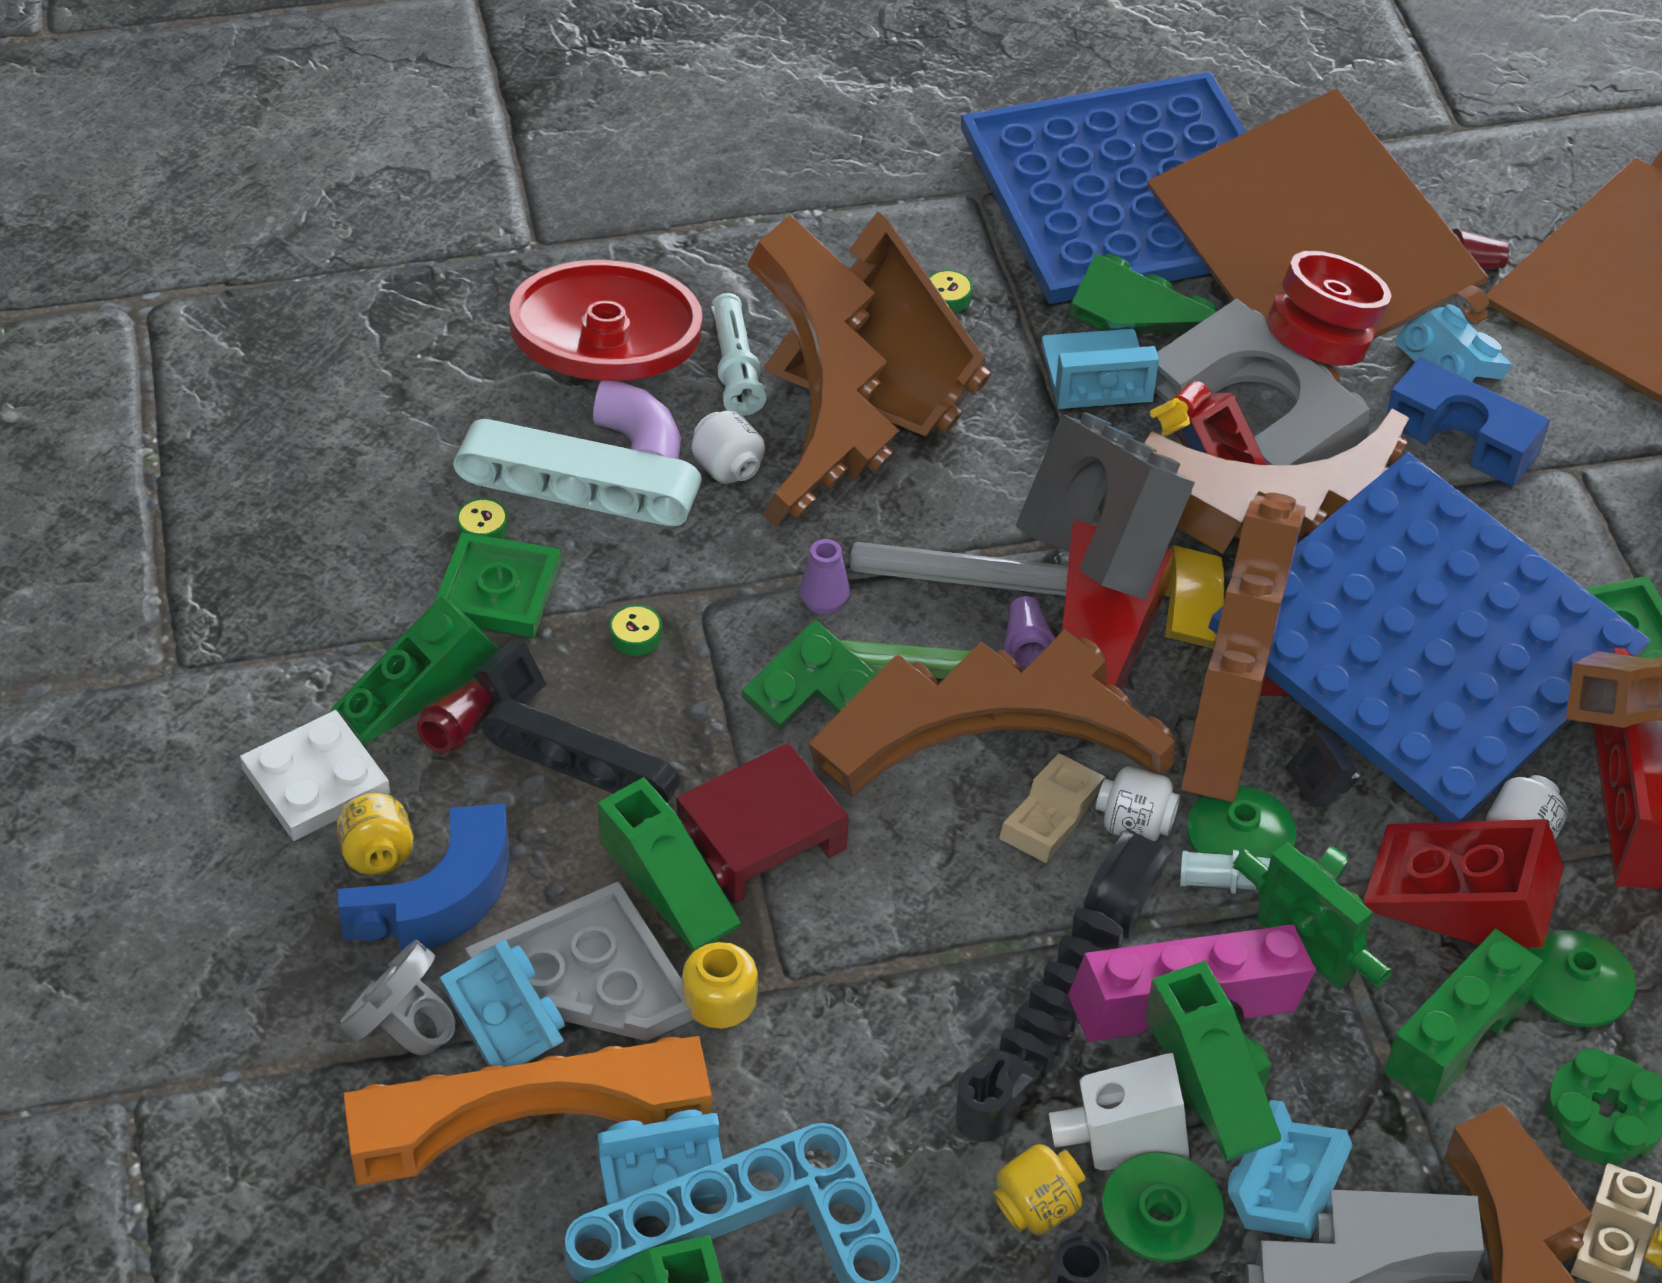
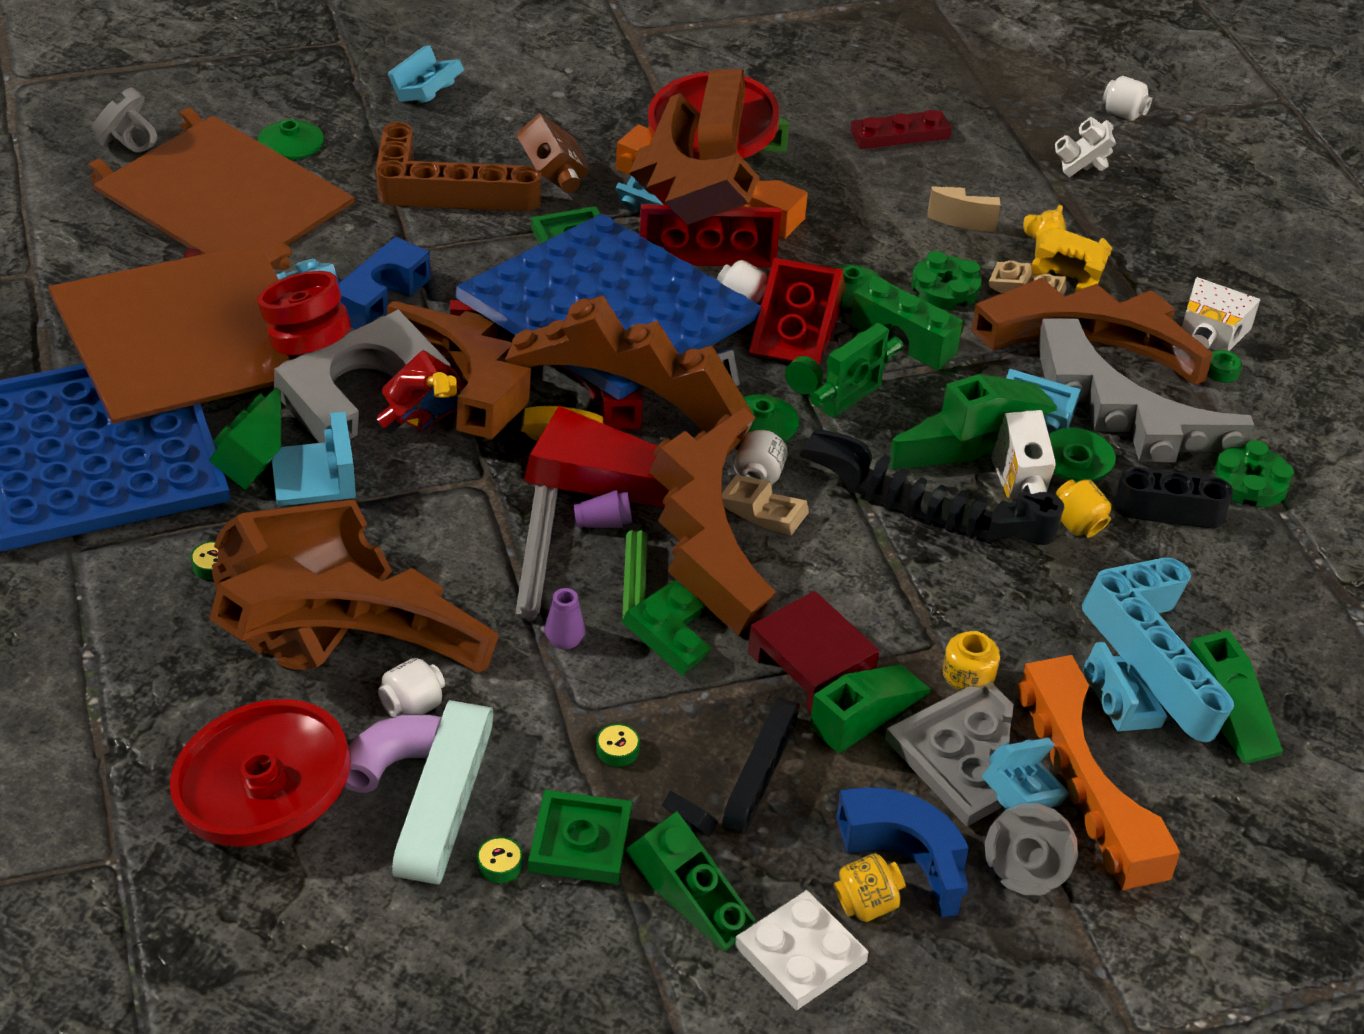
camera: 95 degrees left, 5 degrees down
(451, 719) = (735, 851): dark red cone -> none
(738, 367) = (311, 688): light aqua pin -> none
(1139, 509) = (554, 377): dark grey arch -> none
(1214, 871) = (806, 416): light aqua axle -> none
(1256, 969) = (938, 443): dark pink arch -> none

